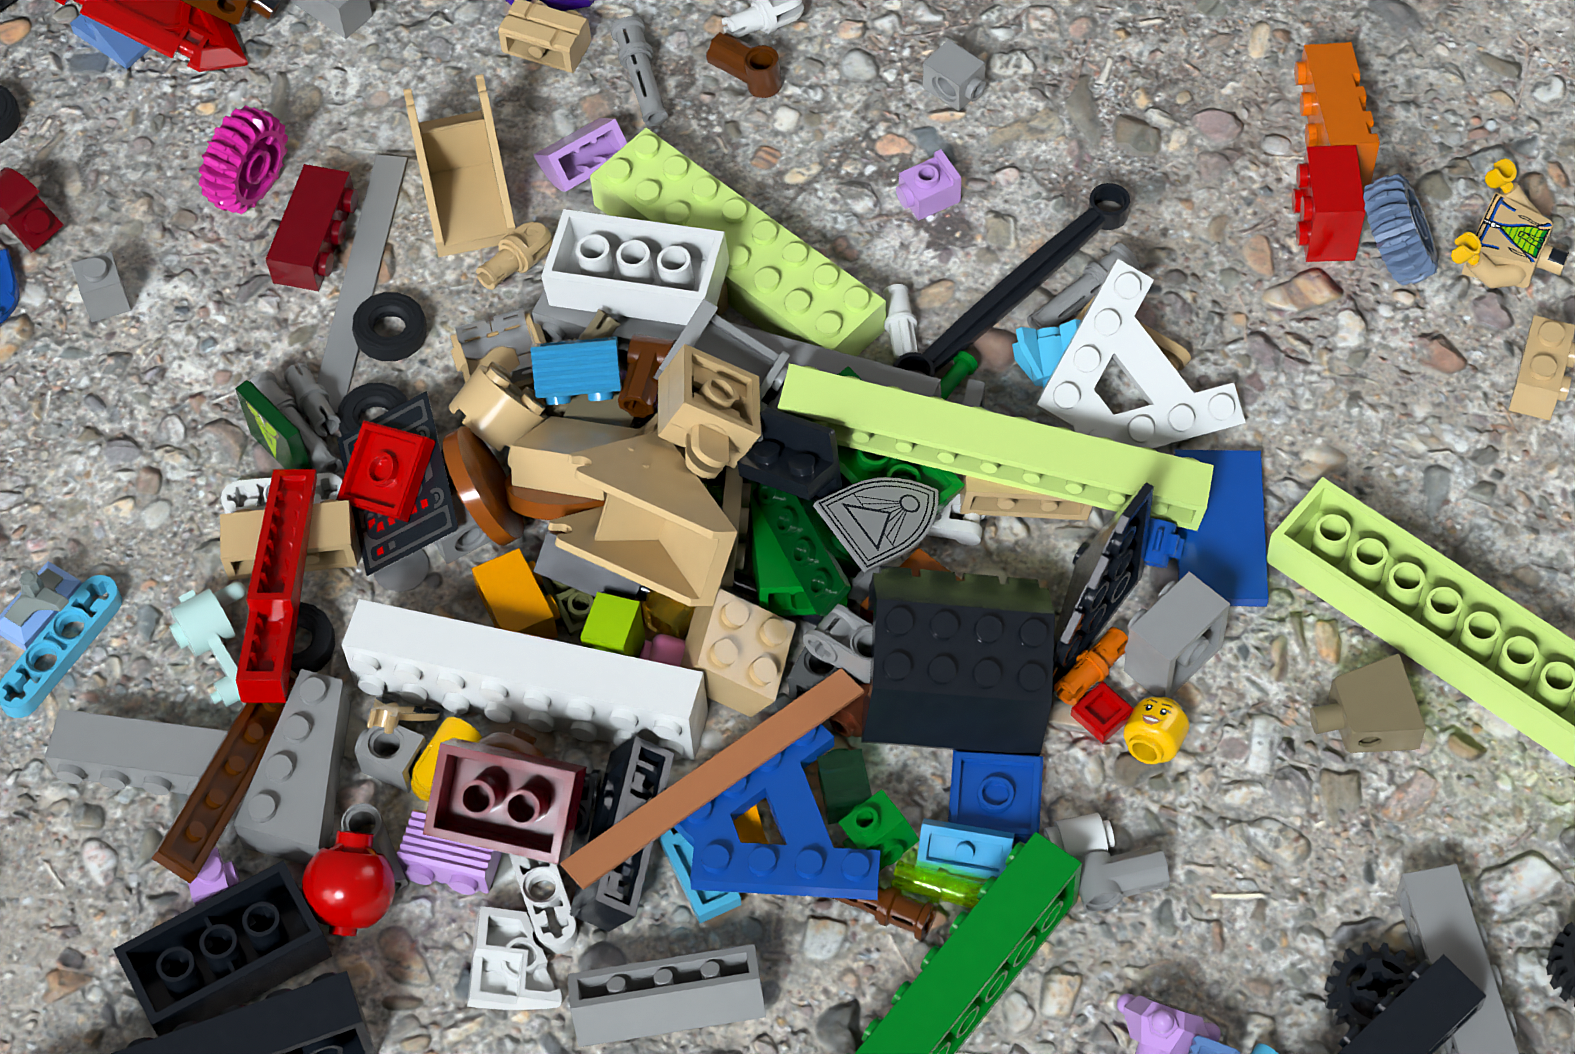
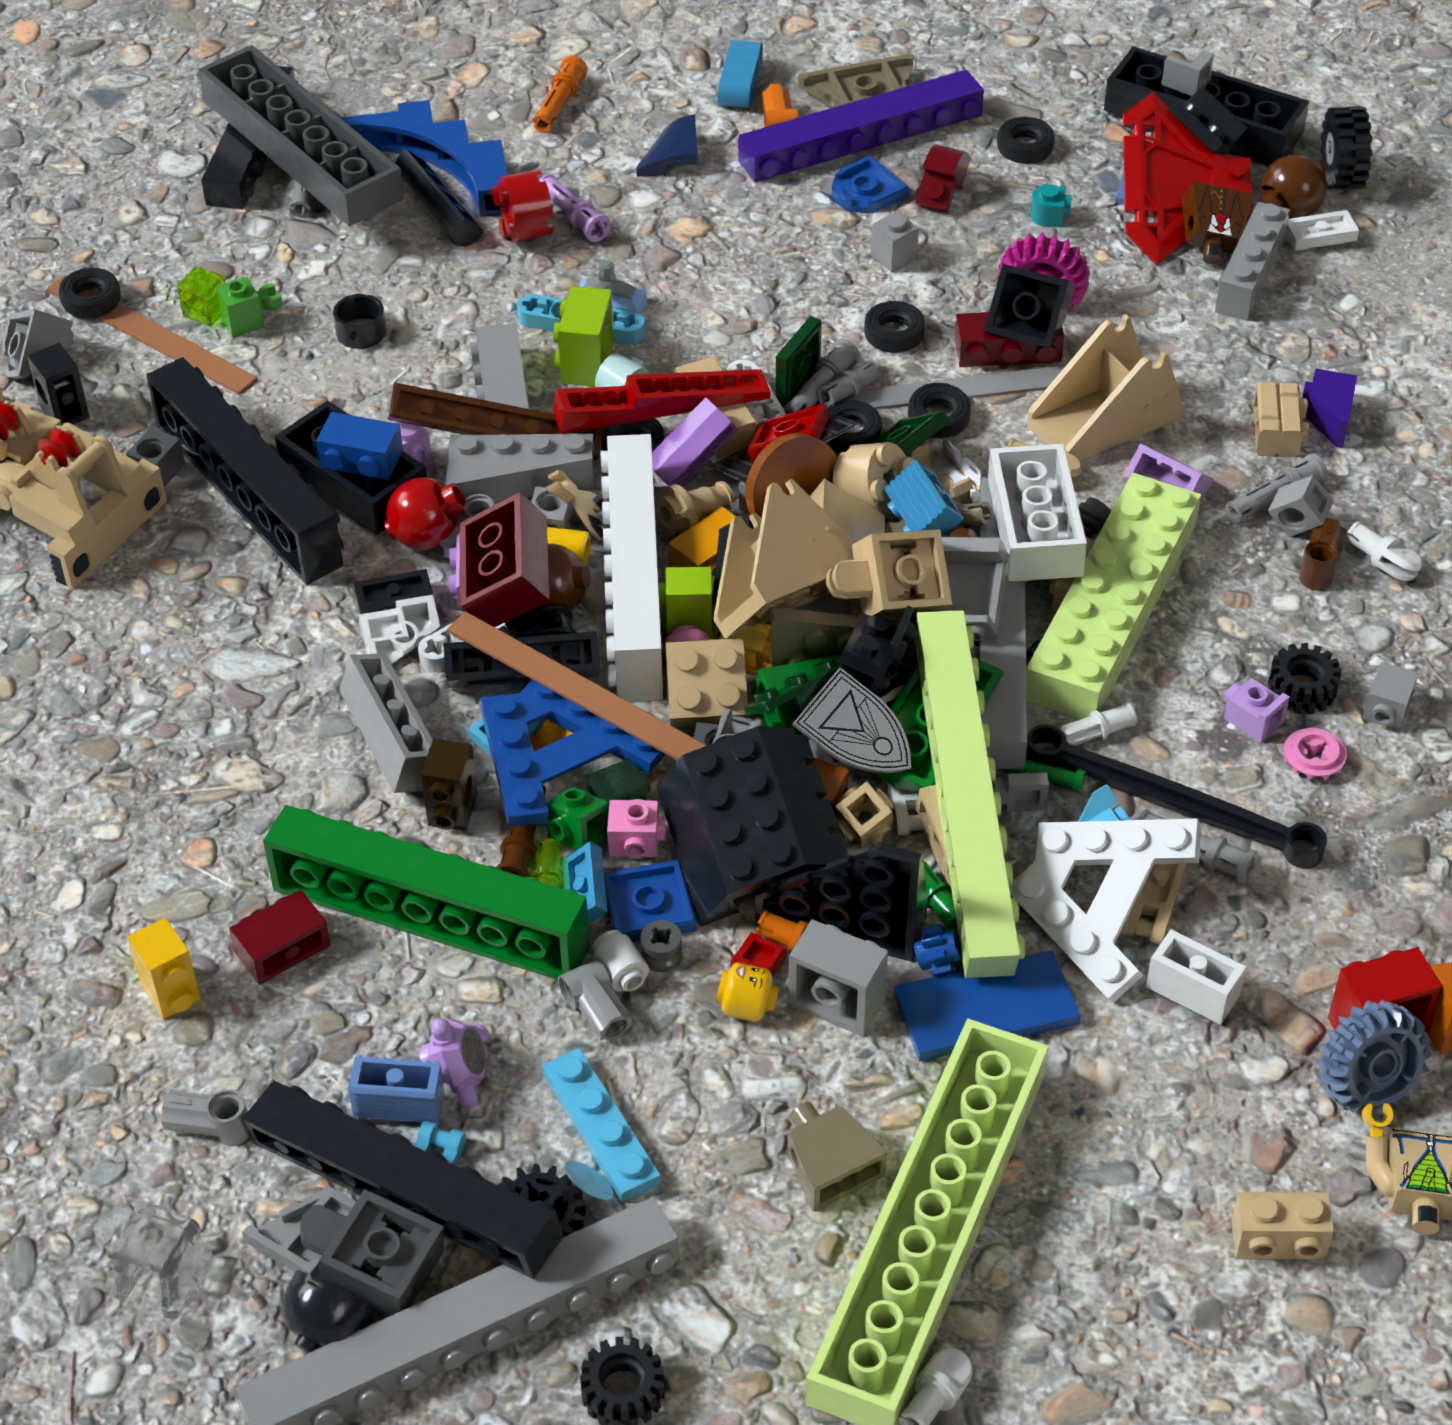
camera: 70 degrees right, 10 degrees down
(114, 125) = (1050, 205): none -> teal plate
(120, 638) = (583, 334): none -> lime brick
(234, 921) = (359, 445): none -> blue brick
(238, 351) = (894, 340): none -> black tyre
(310, 181) = (1029, 306): none -> black slope
(353, 565) = (692, 444): none -> medium lavender piece
(435, 363) = (913, 431): none -> dark green tile
(446, 954) = (383, 592): none -> black plate
(450, 594) = (681, 509): none -> tan piece
(683, 56) = (1301, 506): none -> light grey brick
(794, 948) = (449, 784): none -> dark brown brick
(902, 117) = (1309, 663): none -> black tyre
(909, 777) = (634, 828): none -> bright pink brick
(967, 550) = (864, 801): none -> tan brick
(1004, 148) = (1312, 742): none -> bright pink gear
(1057, 802) = (657, 954): none -> dark grey wheel
(1070, 529) = (940, 898): none -> green axle
(1254, 339) = (1195, 976): none -> white brick
(1273, 913) = (601, 1125): none -> medium azure plate
(1350, 936) = (588, 1180): none -> flat silver sticker

